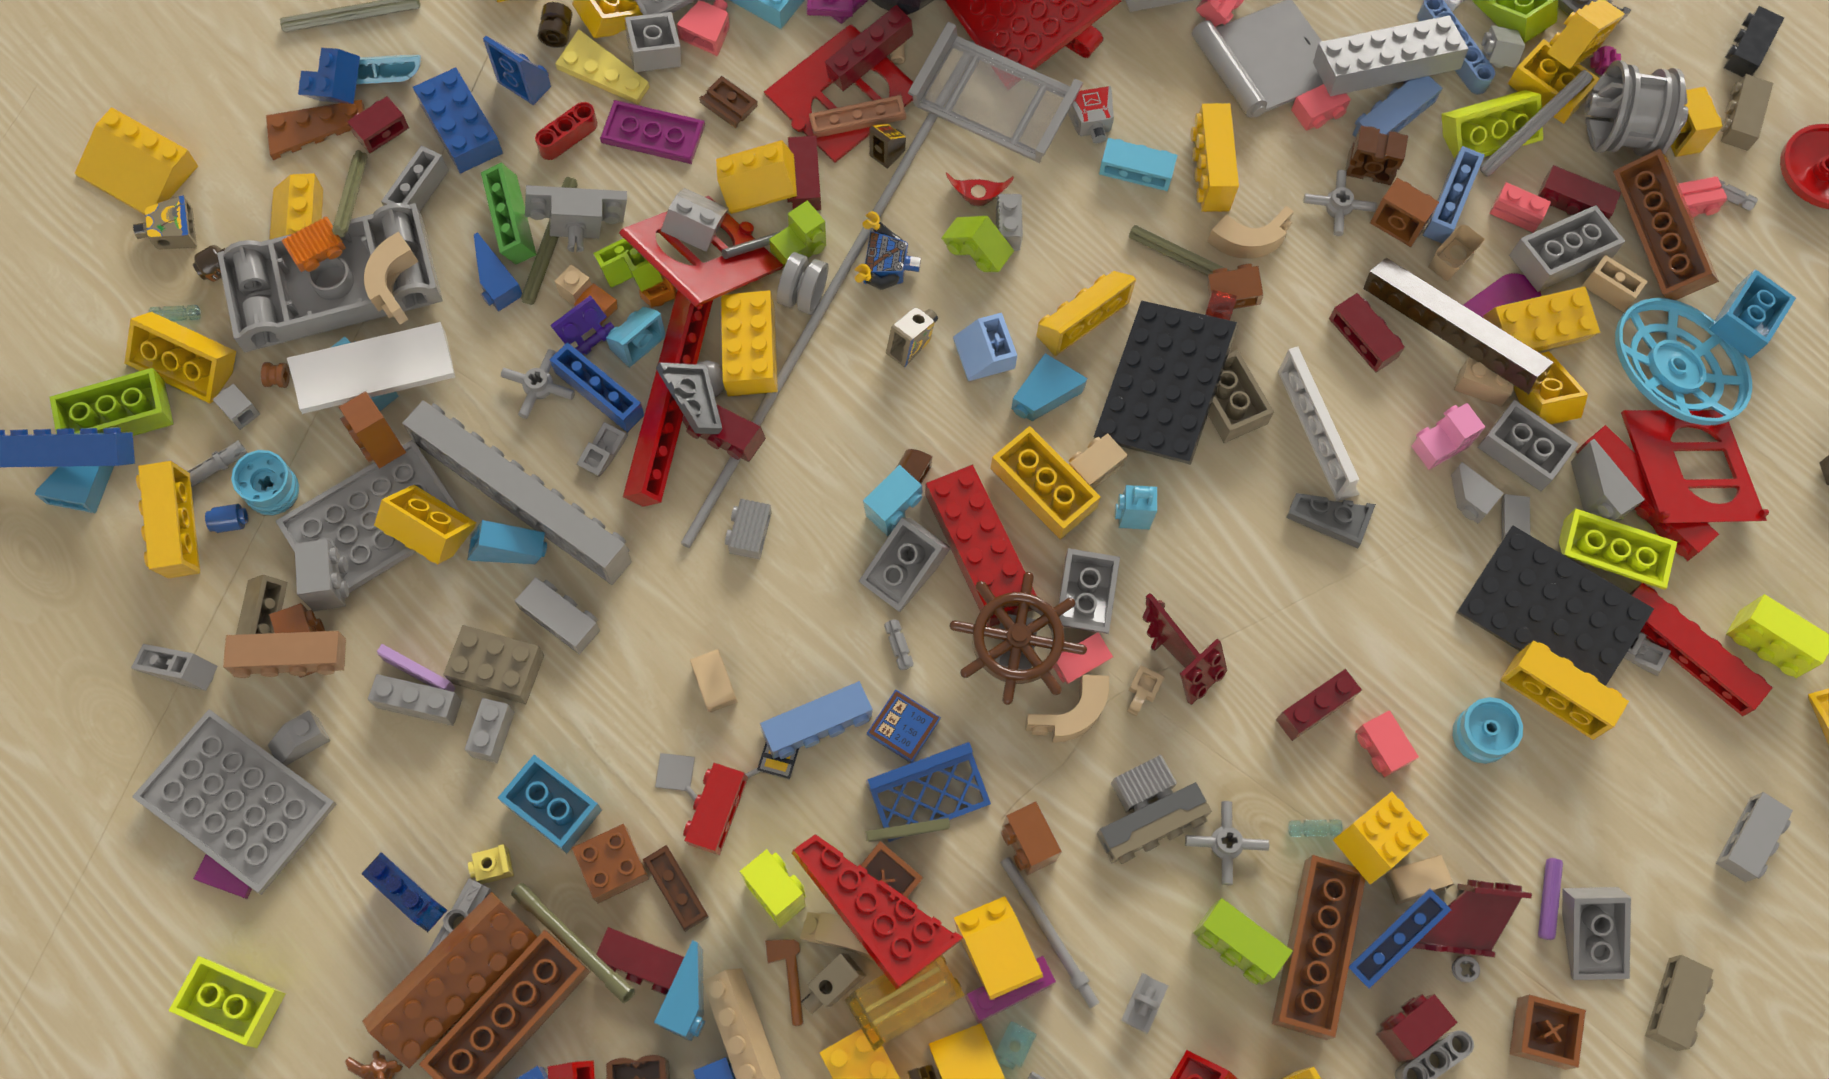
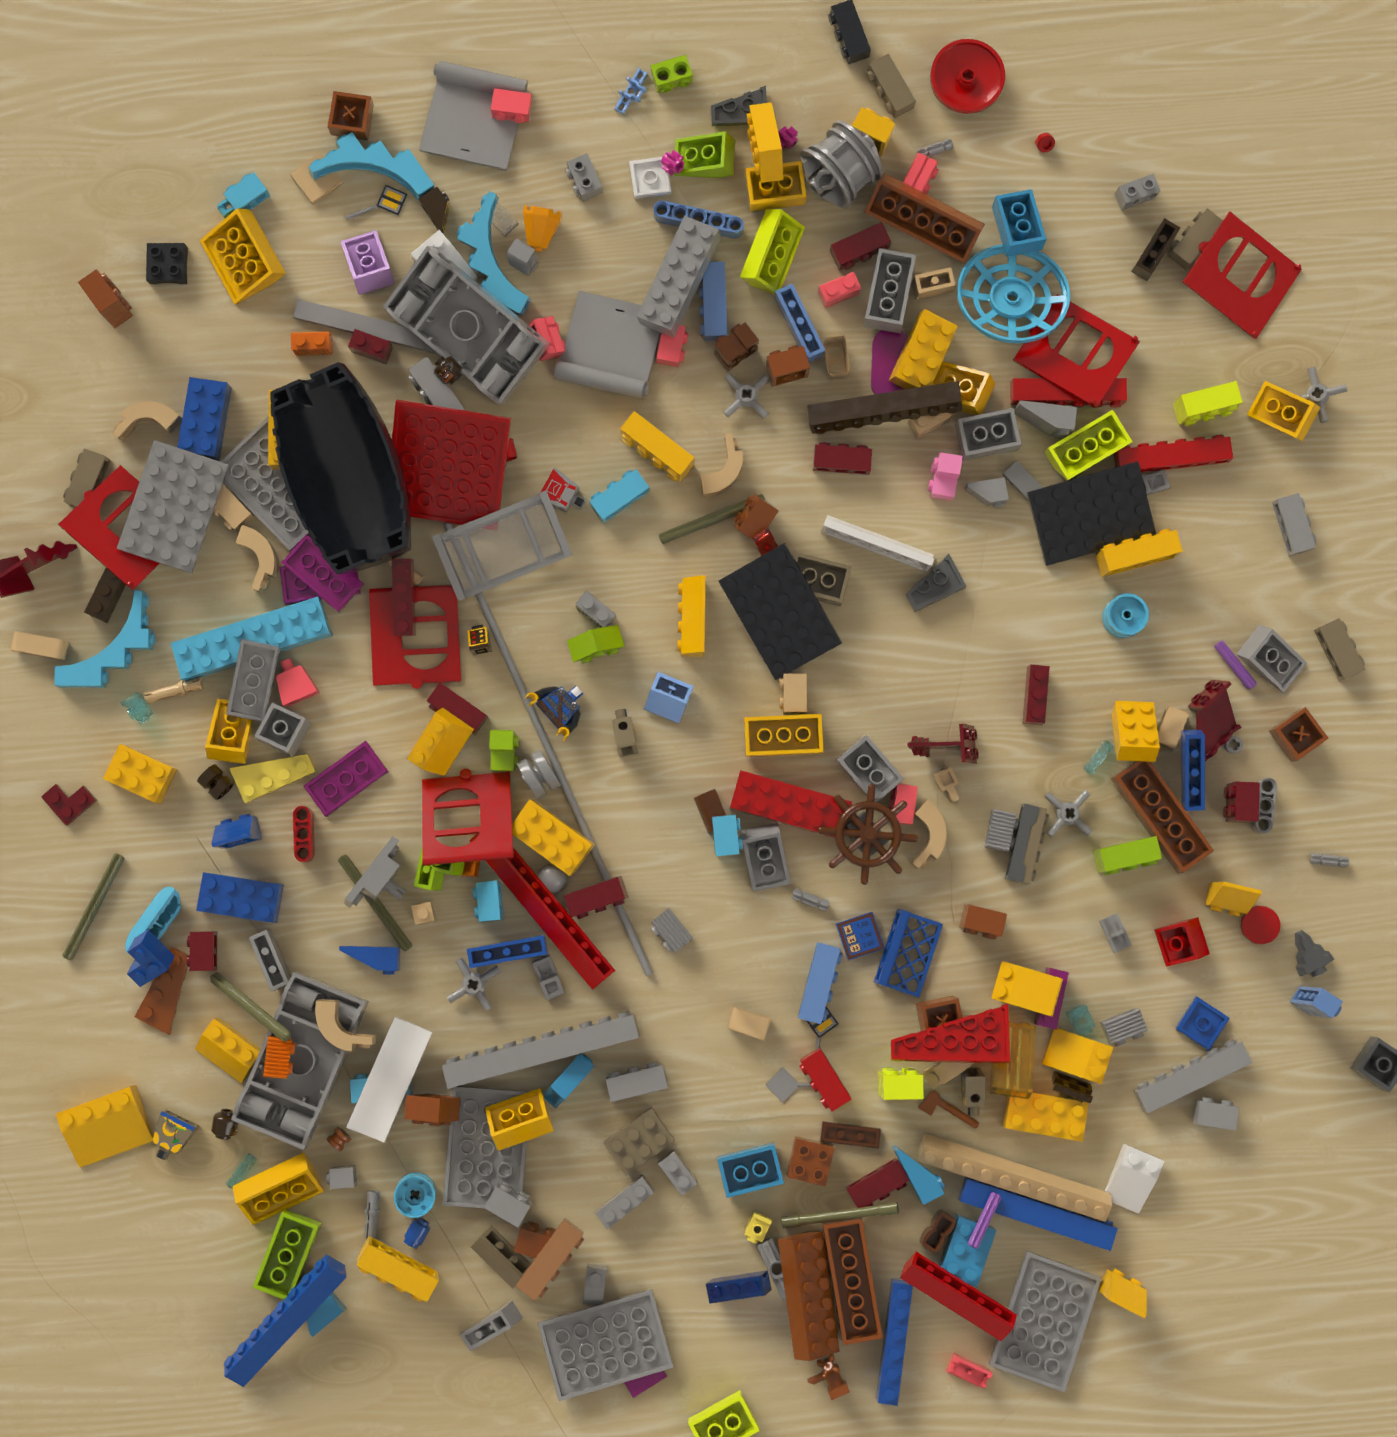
camera: 50 degrees left, 15 degrees up
(414, 669) = (605, 1188): lavender tile -> none
(508, 213) = (339, 916): bright green brick -> none
(581, 320) = (455, 929): dark purple plate -> none
(604, 300) = (446, 908): orange piece -> none
(693, 394) = (566, 901): wing -> none
(694, 219) = (441, 804): light grey slope -> none
(728, 101) = (364, 714): reddish brown plate -> none
(747, 246) = (484, 782): dark grey bar -> none
(857, 116) = (442, 642): nougat tile -> none
(907, 830) = (923, 983): olive tile -> none
(992, 188) = (565, 599): red piece -> none
(1047, 388) = (722, 682): dark azure slope -> none
(1079, 979) = (1074, 956): light grey bar -> none
(1136, 507) = (842, 696): medium azure brick -> none
(1386, 744) = (1086, 677): coral brick -> none
(1503, 46) = (727, 195): light grey brick -> none
(1536, 123) = (796, 242): light grey axle -> none

